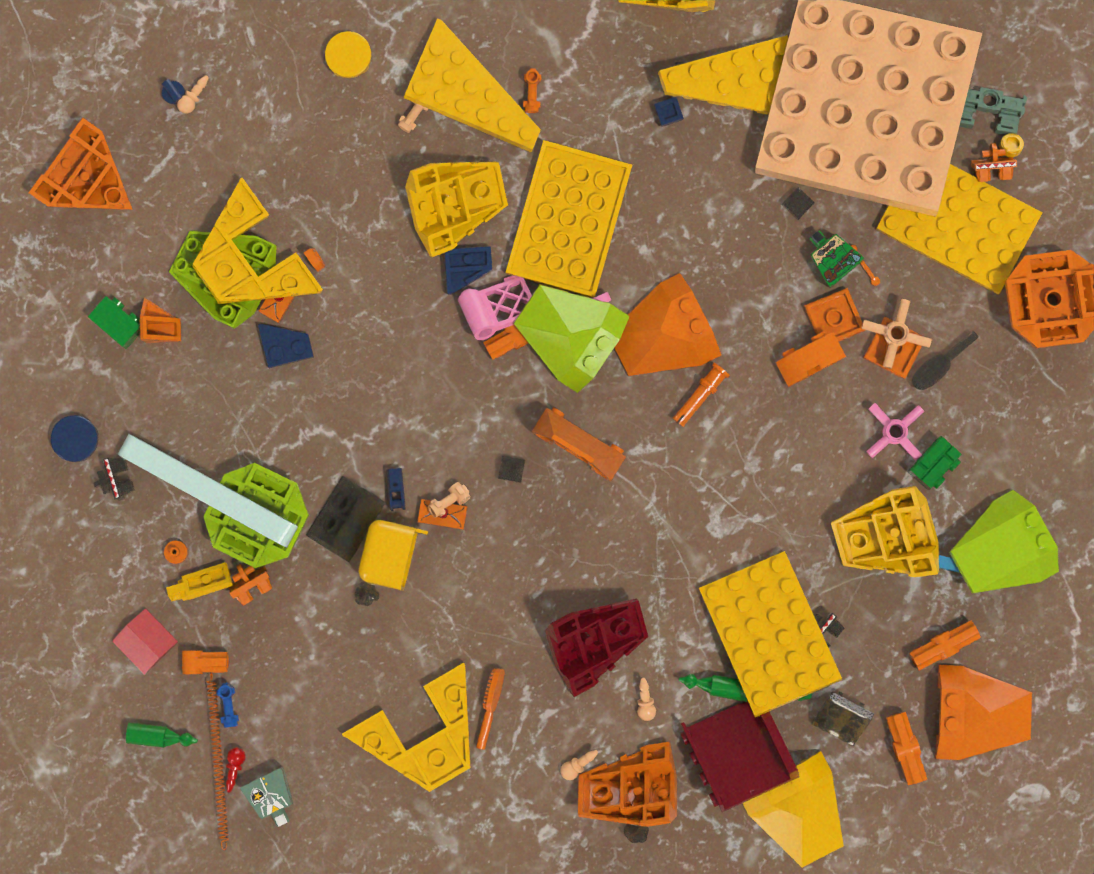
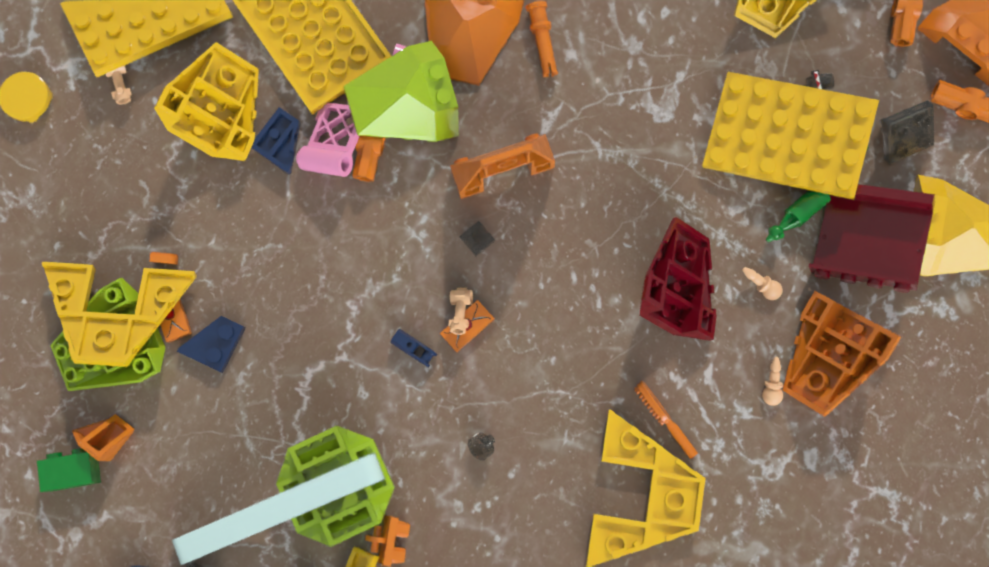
camera: 50 degrees left, 5 degrees down
(345, 518) = (403, 410): clear smoke slope -> none
(388, 554) = (463, 396): yellow piece -> none
(636, 833) = (874, 382): clear smoke tile -> none

